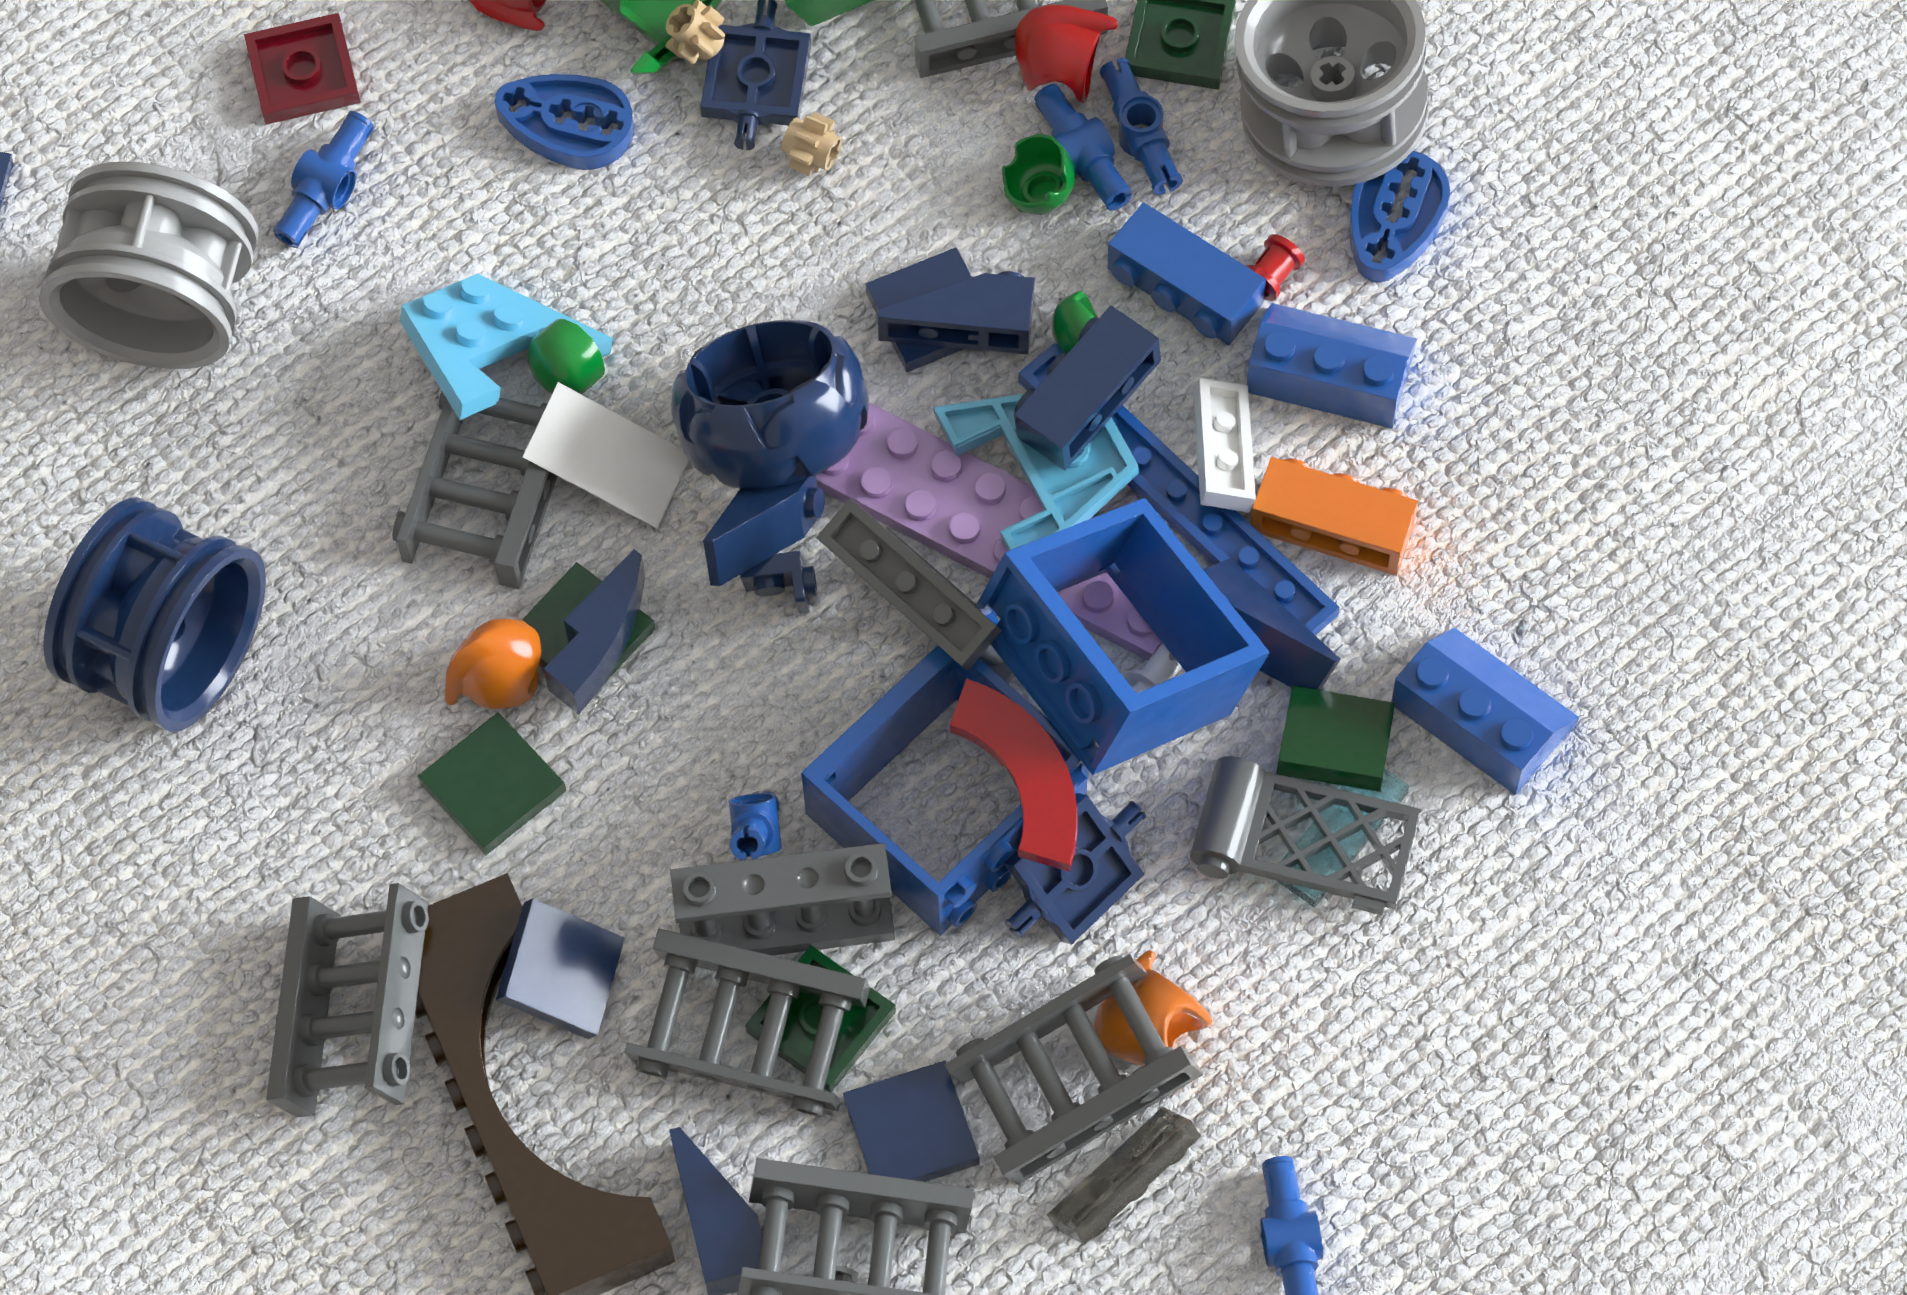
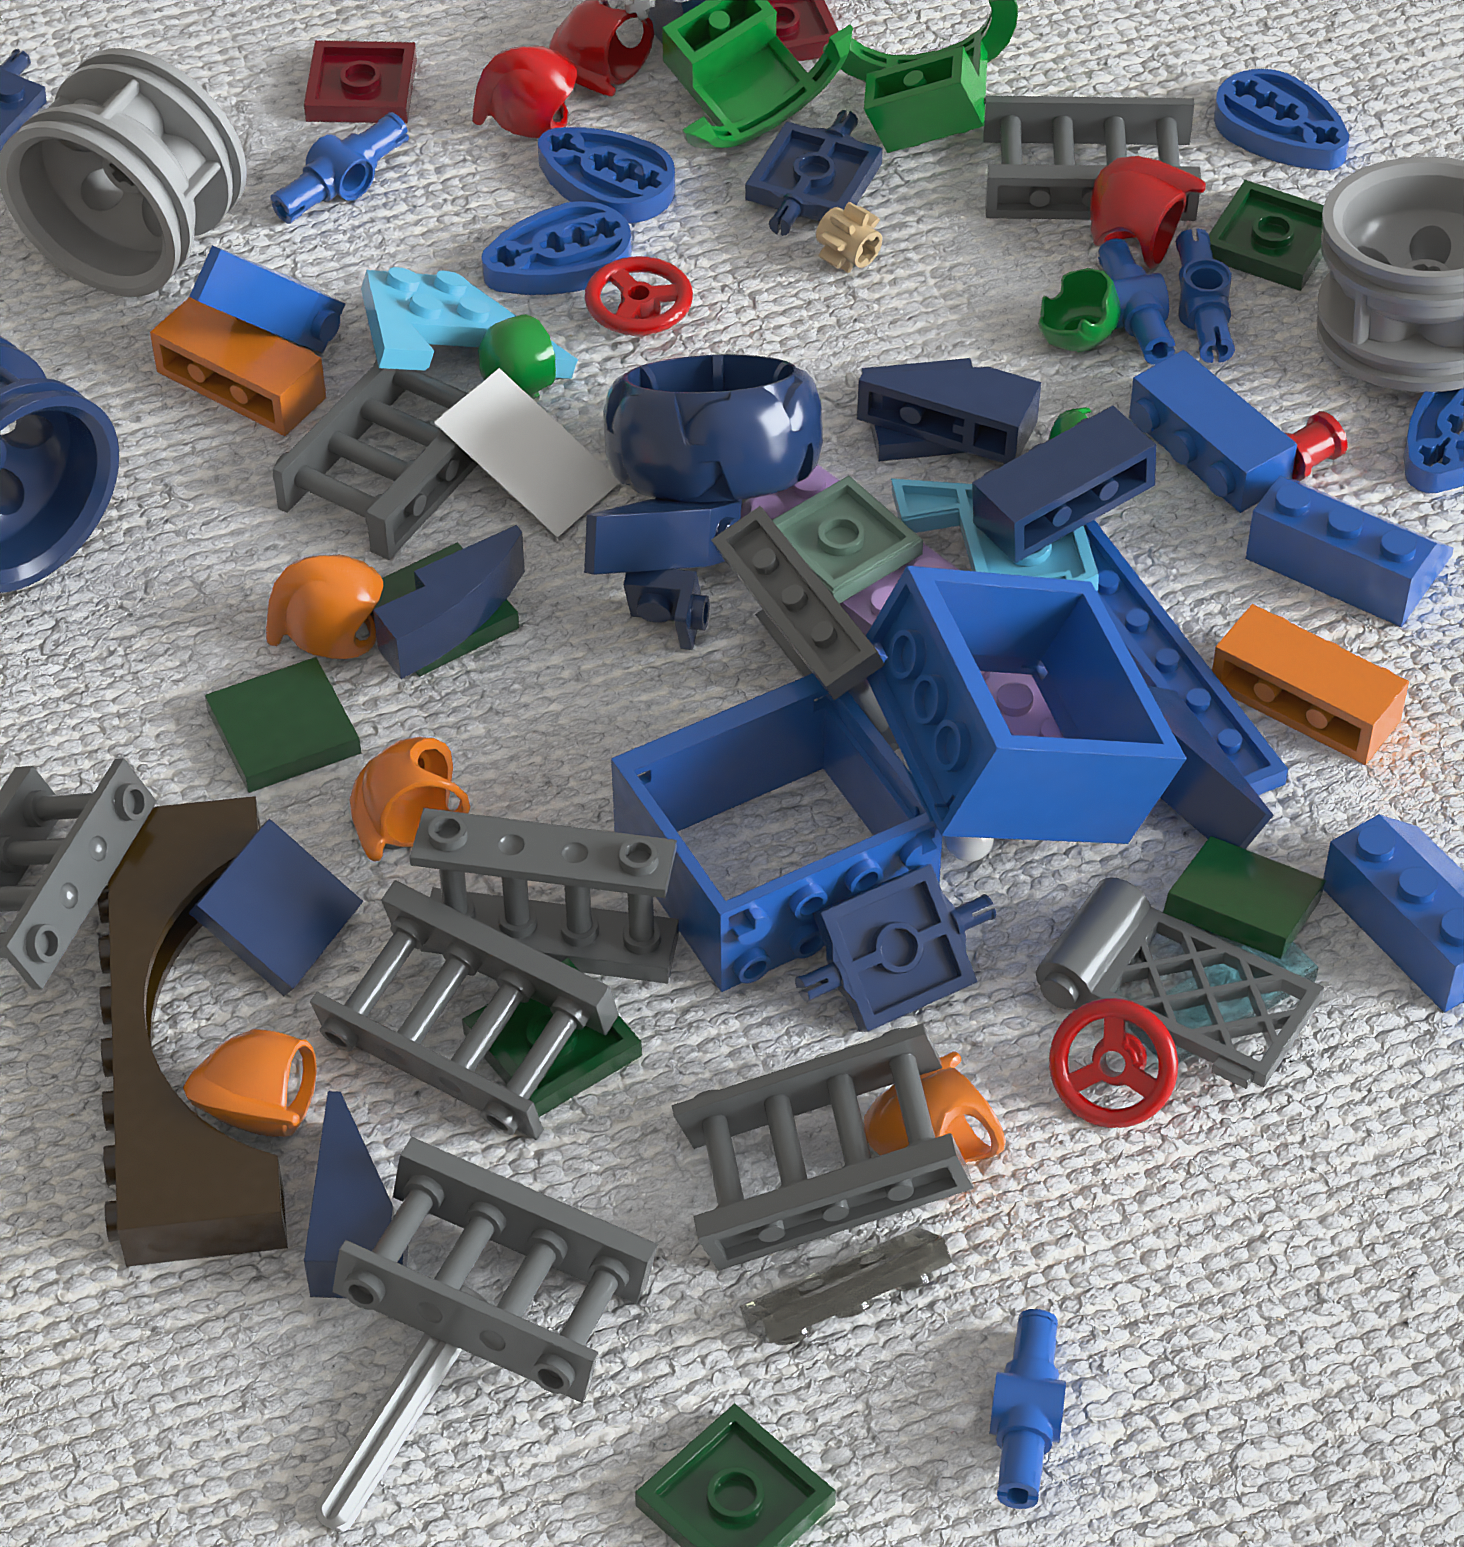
camera: 15 degrees right, 15 degrees down
(316, 425) = (239, 365): none -> orange brick
(331, 363) = (268, 299): none -> slope
(470, 53) = (525, 90): none -> red piece
(543, 196) = (531, 246): none -> blue piece
(604, 1136) = (248, 1080): none -> orange piece
(622, 832) = (397, 787): none -> orange piece
(650, 281) = (640, 302): none -> red piece
(695, 32) = (762, 115): tan gear -> none
(754, 825) = (543, 801): blue pin -> none
(908, 479) = (848, 538): none -> sand green tile
(912, 1125) = (618, 1169): dark blue tile -> none
(1033, 764) = (876, 811): red tile -> none
(1224, 445) = (1203, 588): white plate -> none
(1280, 905) = (1115, 1013): none -> red piece

